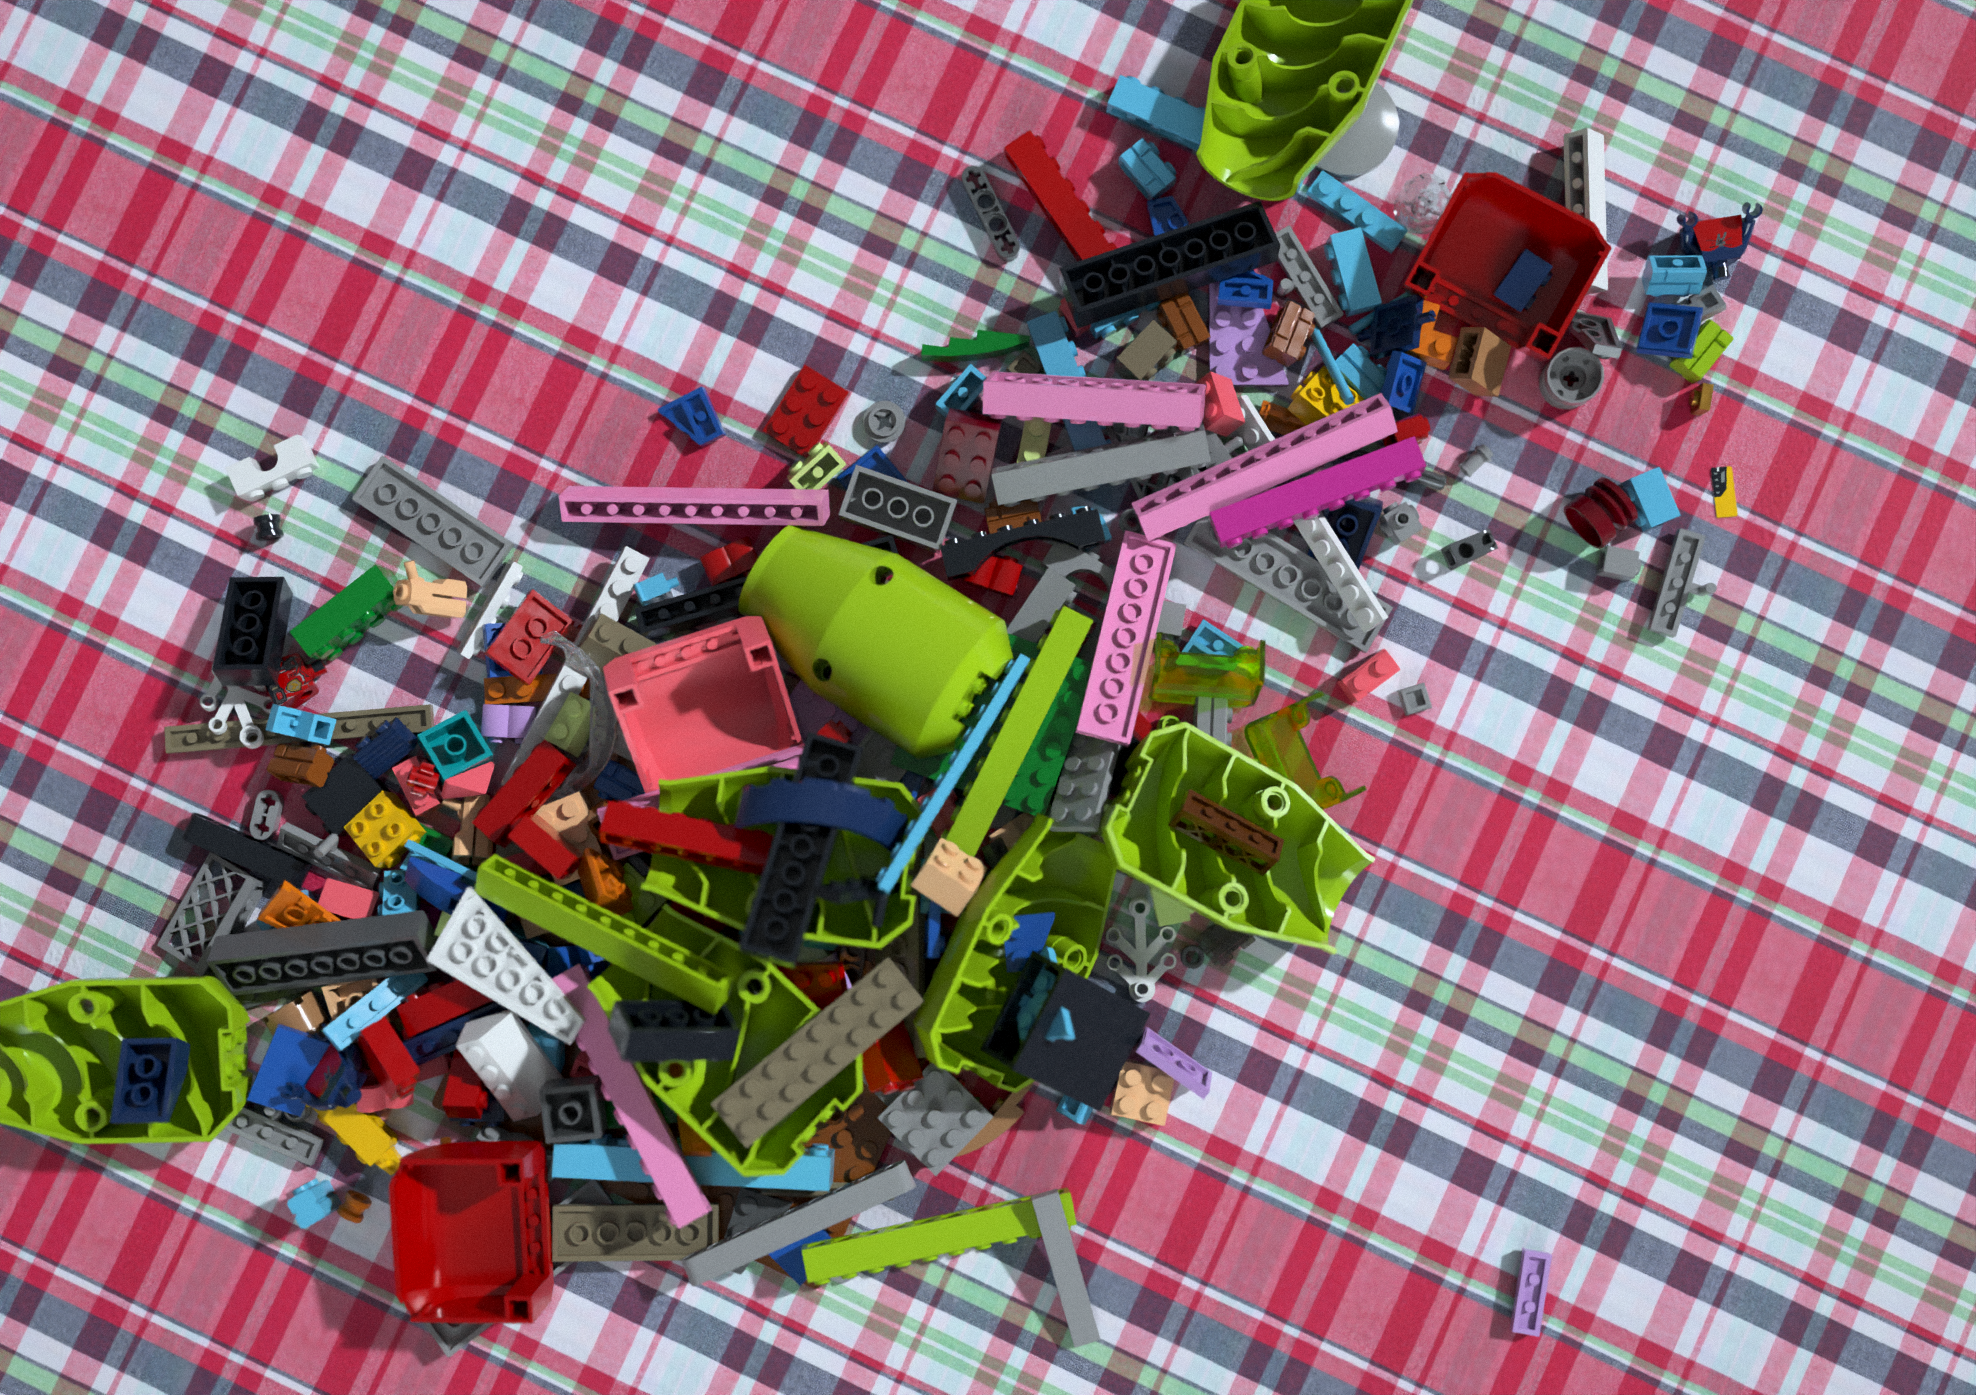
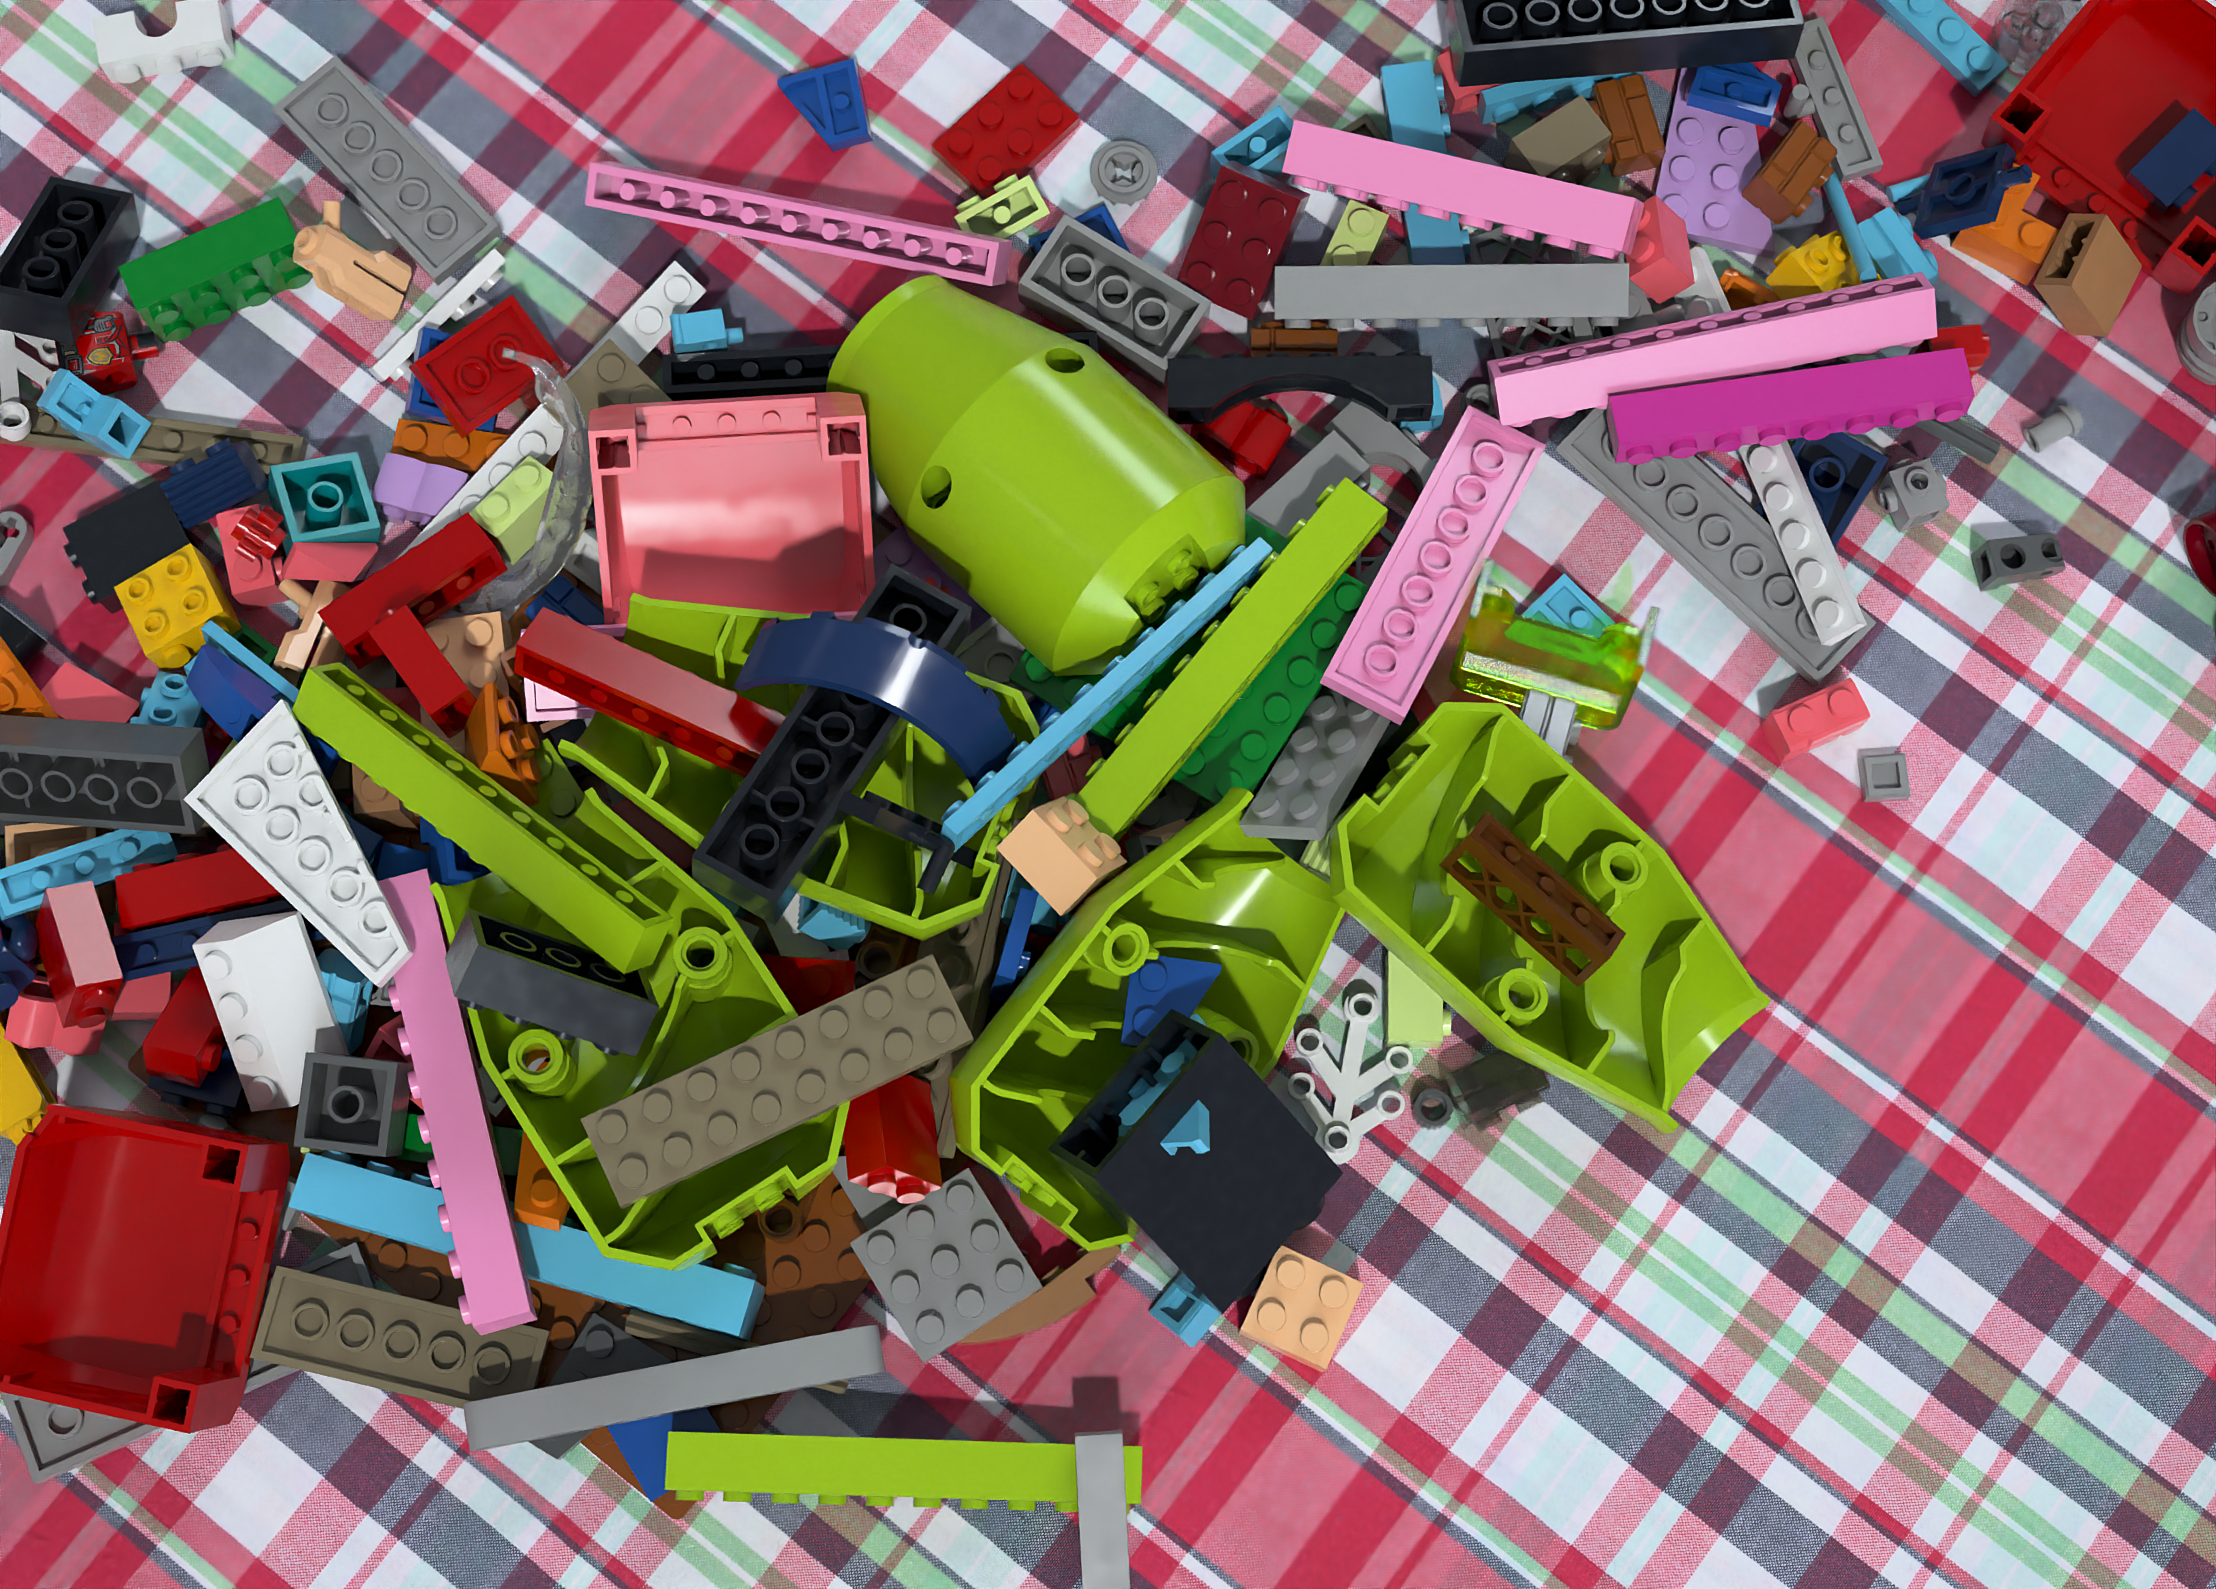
camera: 10 degrees right, 10 degrees down
(268, 527) = (131, 123): black wheel -> none
(301, 764) = (75, 479): dark orange brick -> none
(328, 856) = (75, 633): light grey plate -> none
(730, 561) = (826, 319): red brick -> none
(987, 345) = (1309, 95): green slope -> none
(1171, 620) = (1513, 560): light grey brick -> none
(1174, 1062) = (1365, 1268): lavender tile -> none
(1281, 748) = (1648, 786): clear neon green windscreen -> none
(1352, 272) = (1909, 106): medium azure brick -> none
(1403, 381) = (1961, 275): blue plate -> none

